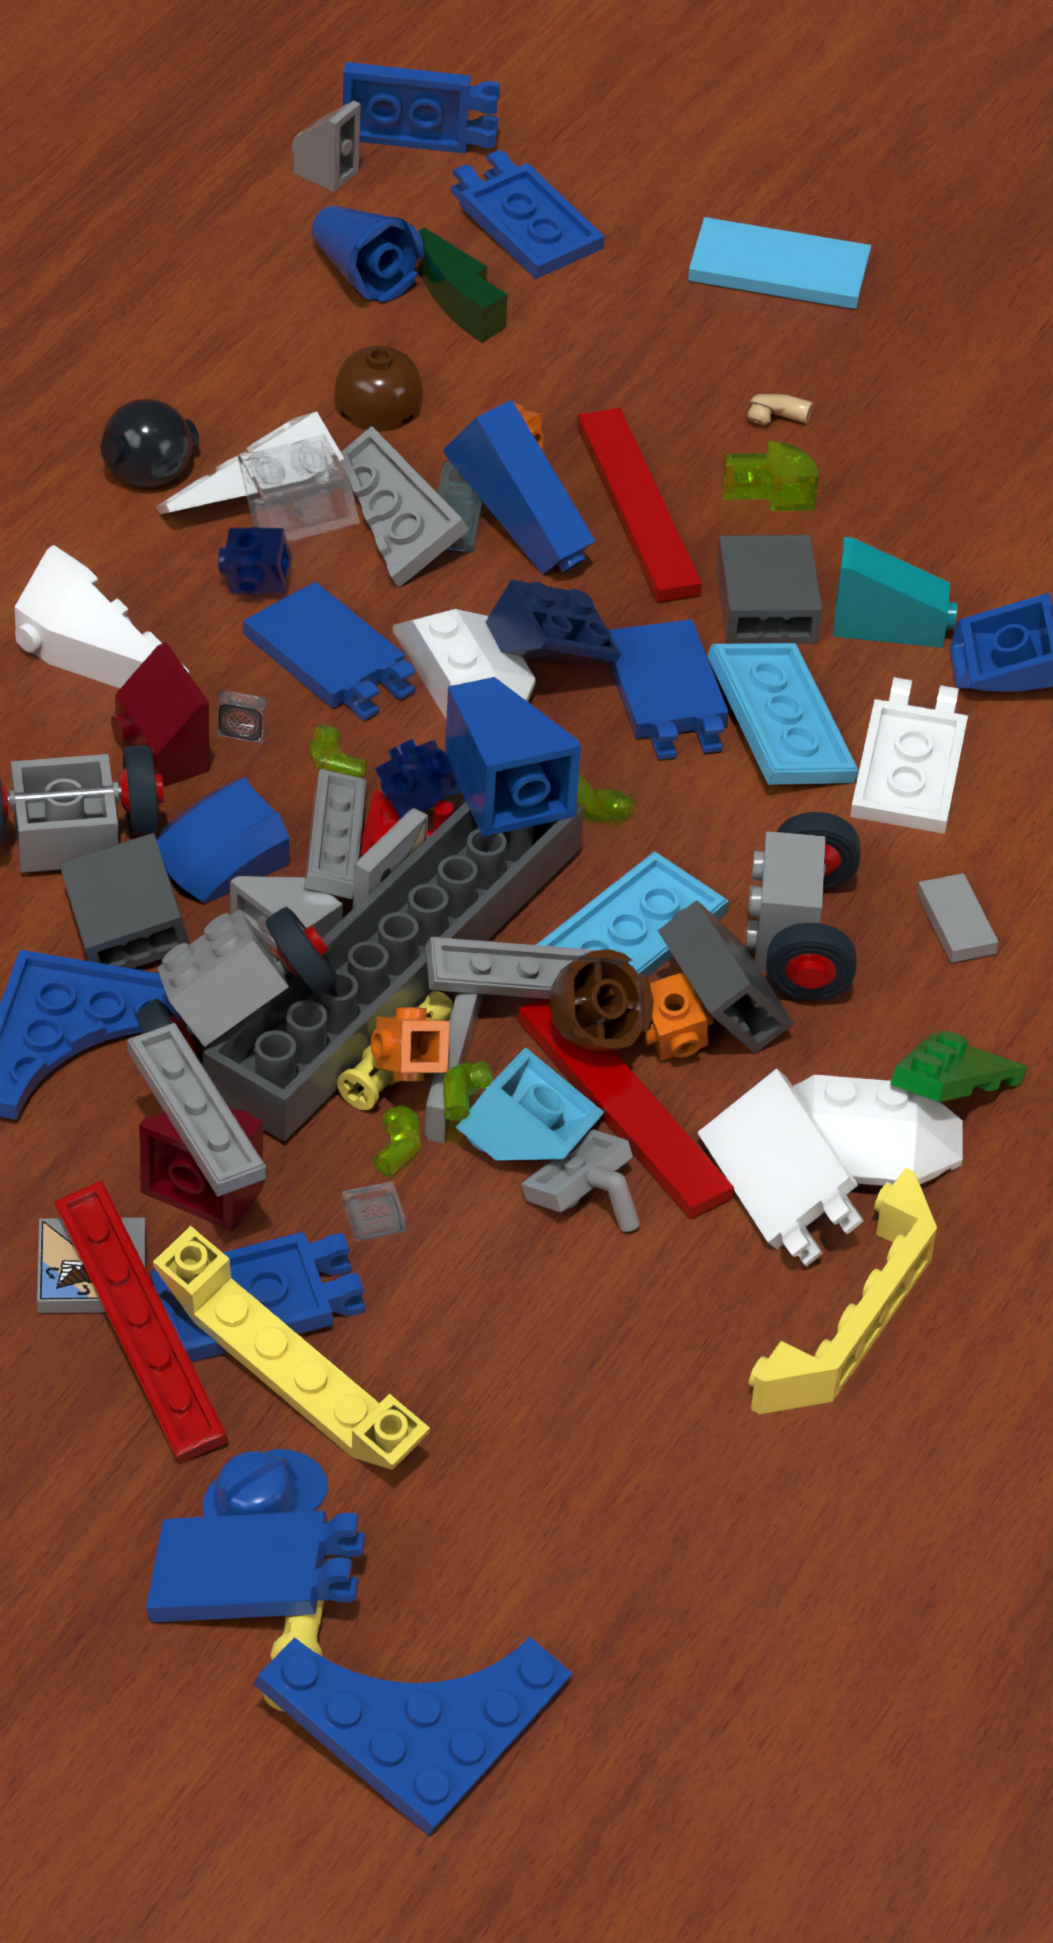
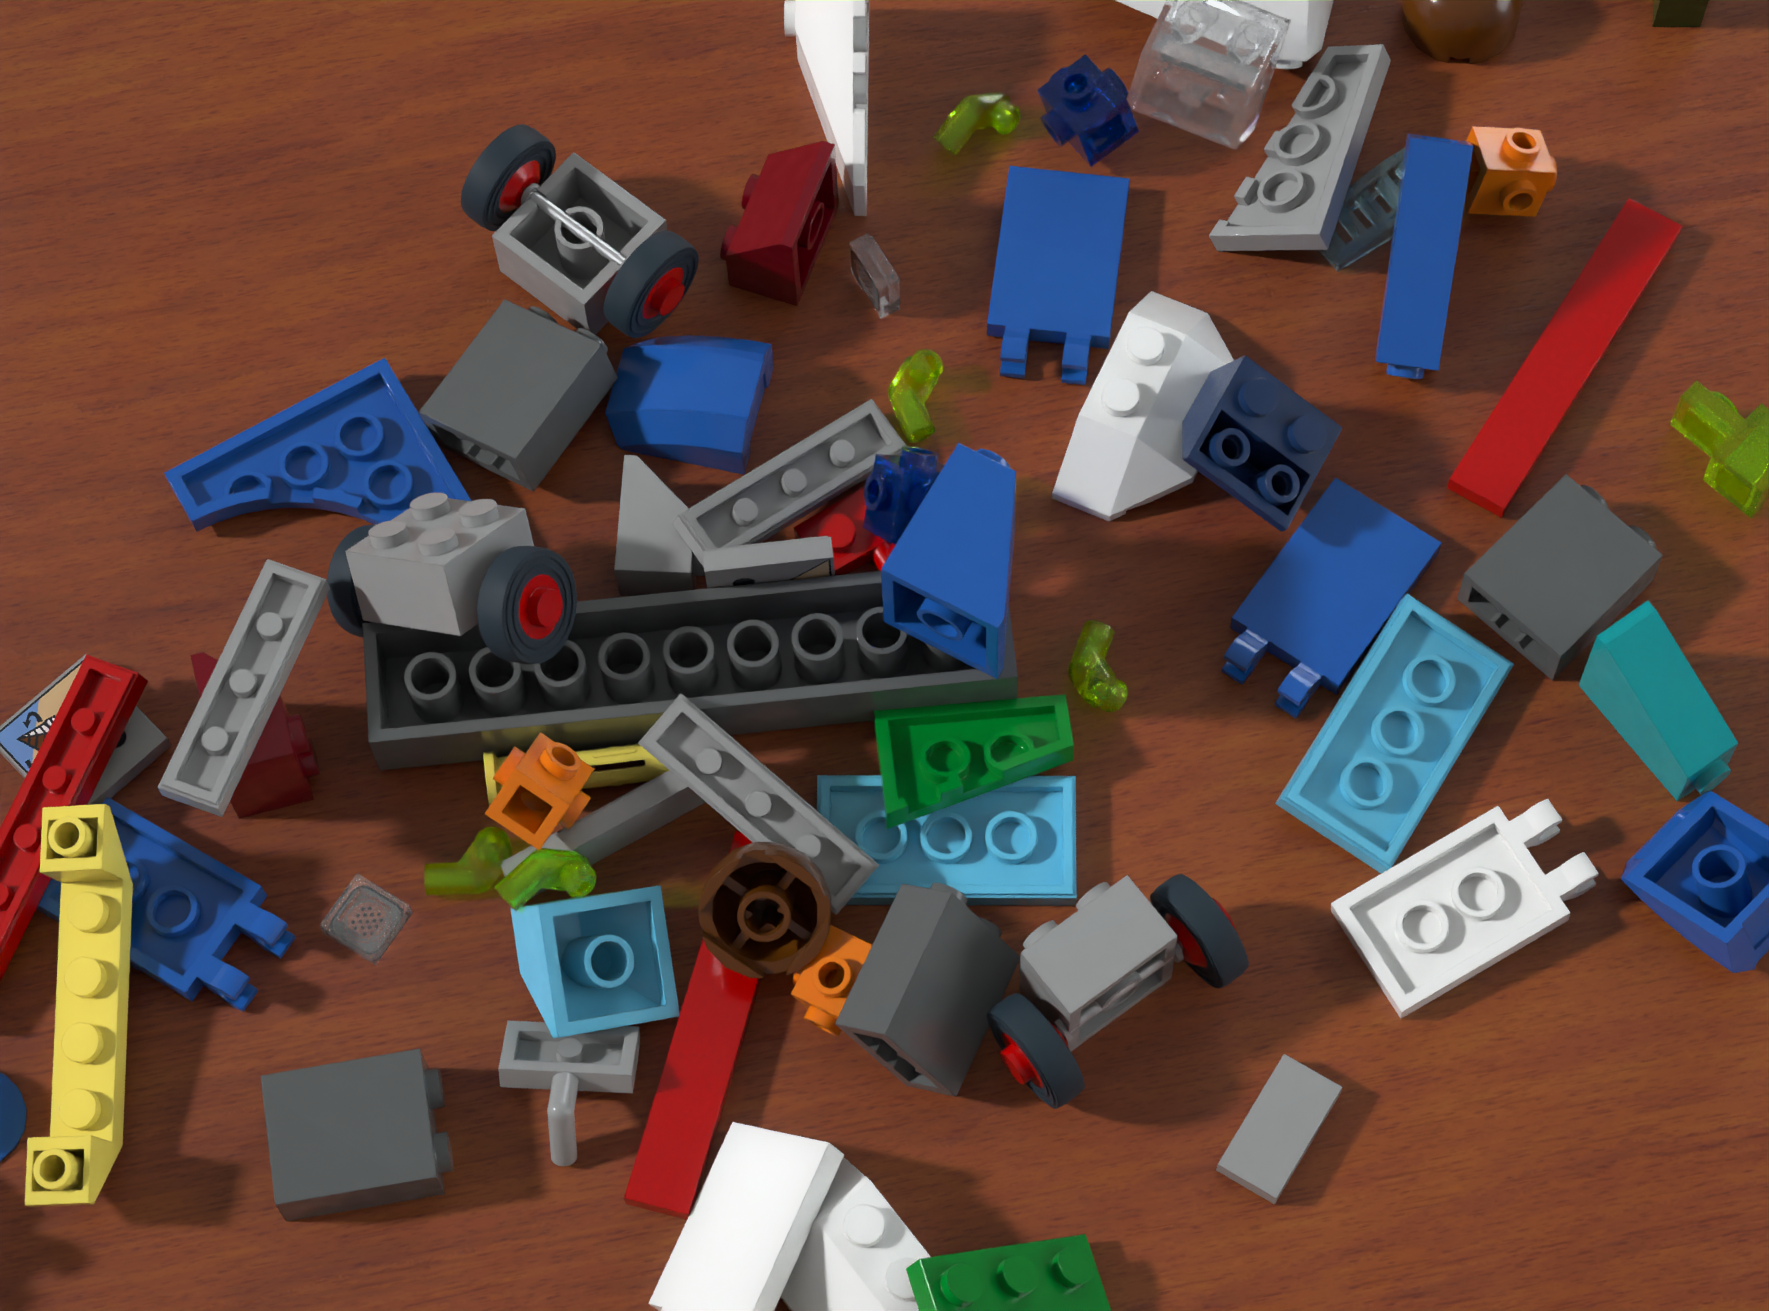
camera: 55 degrees right, 20 degrees up
(190, 616) = (975, 113): none -> clear neon green arm
(513, 1299) = (355, 1134): none -> dark grey brick
(587, 879) = (965, 750): none -> green wing

